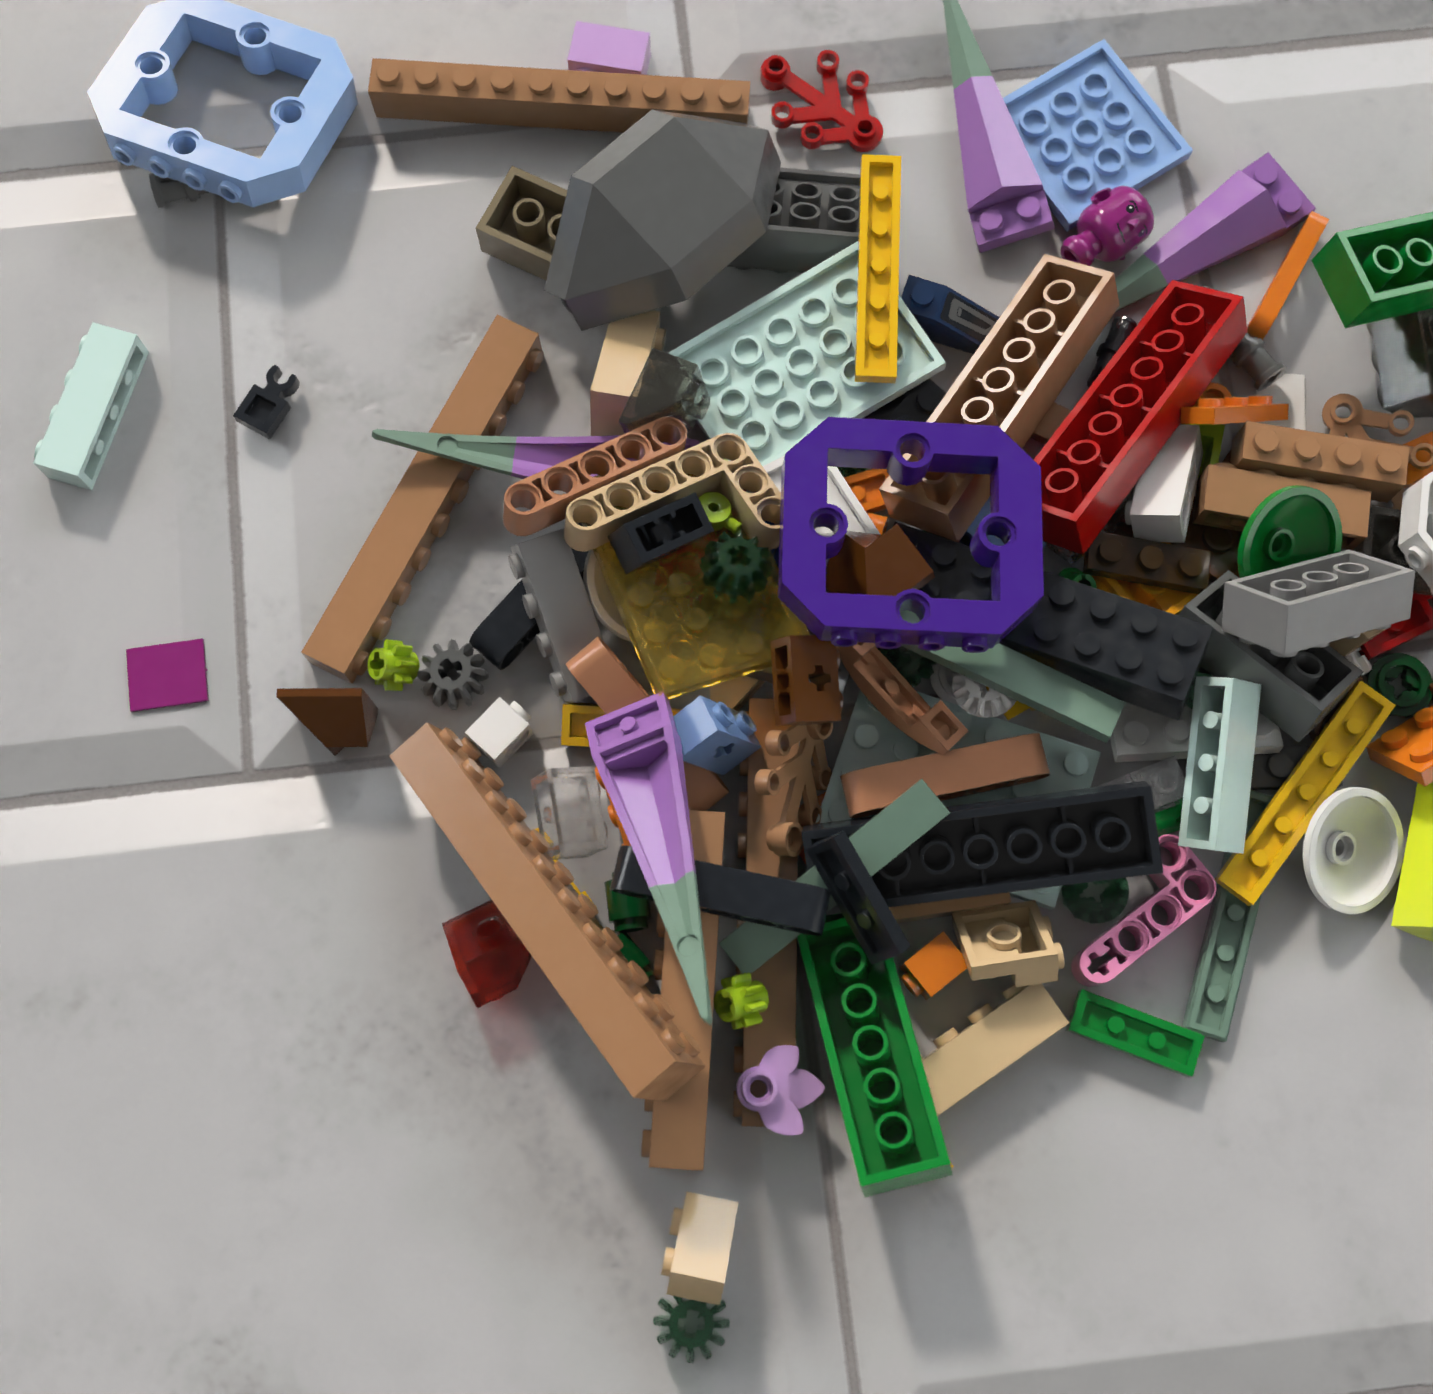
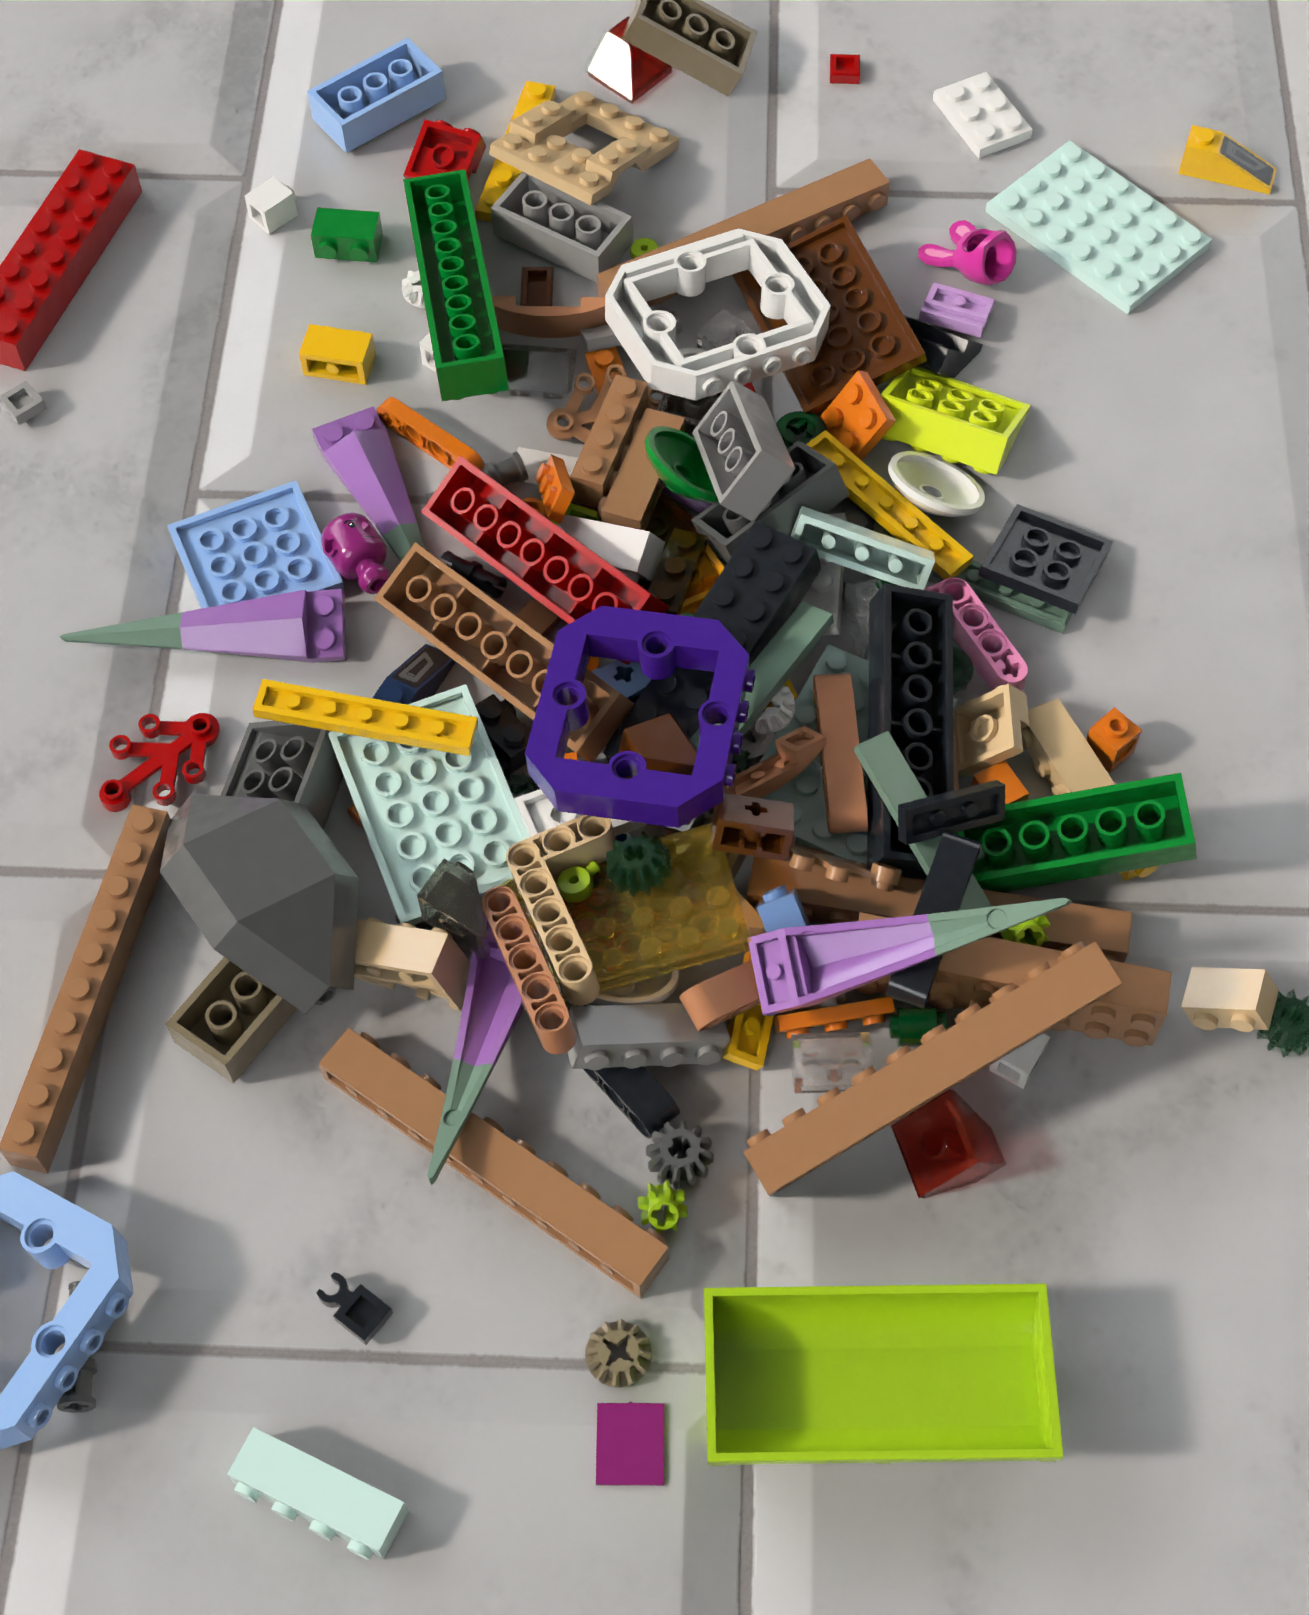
camera: 80 degrees left, 15 degrees down
(205, 891) = (880, 1374): none -> lime piece
(252, 666) = (622, 1372): none -> dark tan gear
(333, 714) = (714, 1259): reddish brown slope -> none
(500, 731) = (741, 1115): white brick -> none
(609, 49) = (53, 933): lavender brick -> none
(660, 533) = (601, 914): black brick -> none
(785, 1093) = (1102, 913): lavender plate -> none
(1030, 1094) = (1113, 739): none -> orange brick
(1135, 1033) = (1066, 659): green plate -> none
(1275, 996) = (1045, 558): none -> black plate
(1381, 156) = (337, 354): none -> yellow brick

